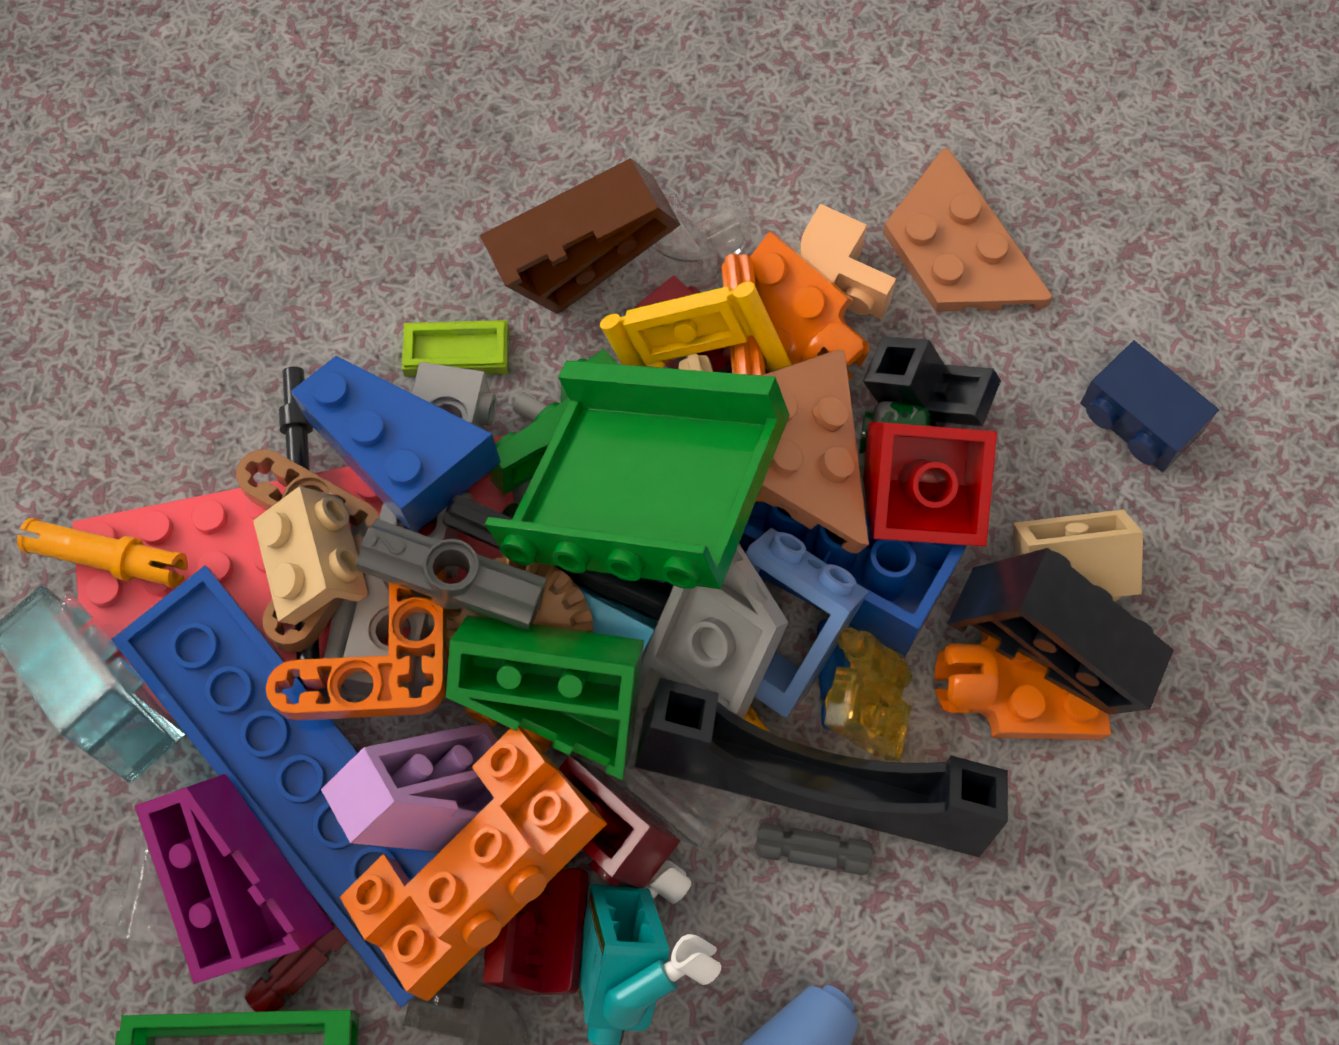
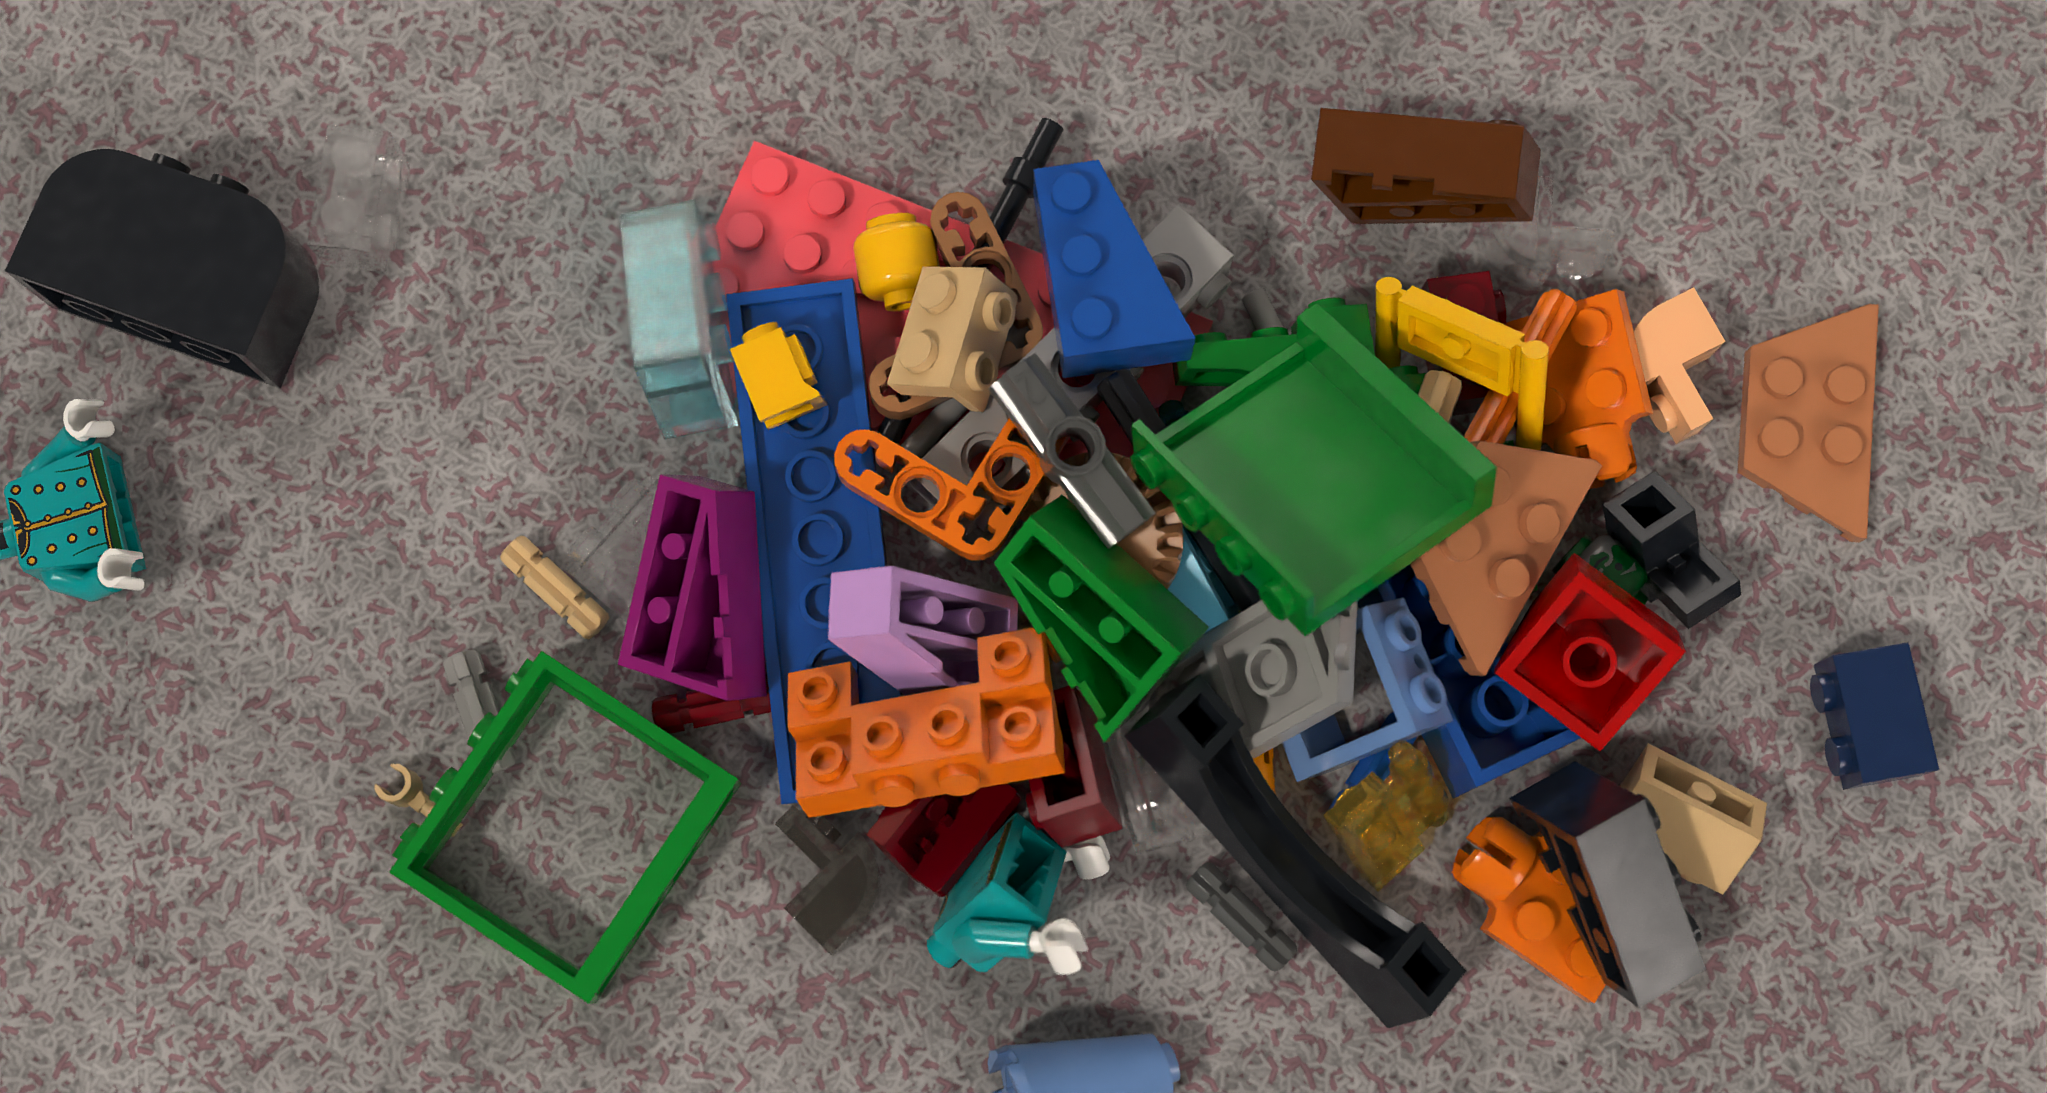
camera: 30 degrees right, 10 degrees up
(109, 959) = (554, 587): none -> tan axle
(123, 557) = (782, 216): light orange pin -> none
(187, 671) = (776, 375): none -> yellow window
(226, 532) = (892, 257): none -> yellow head
(457, 344) = (1227, 196): lime tile -> none

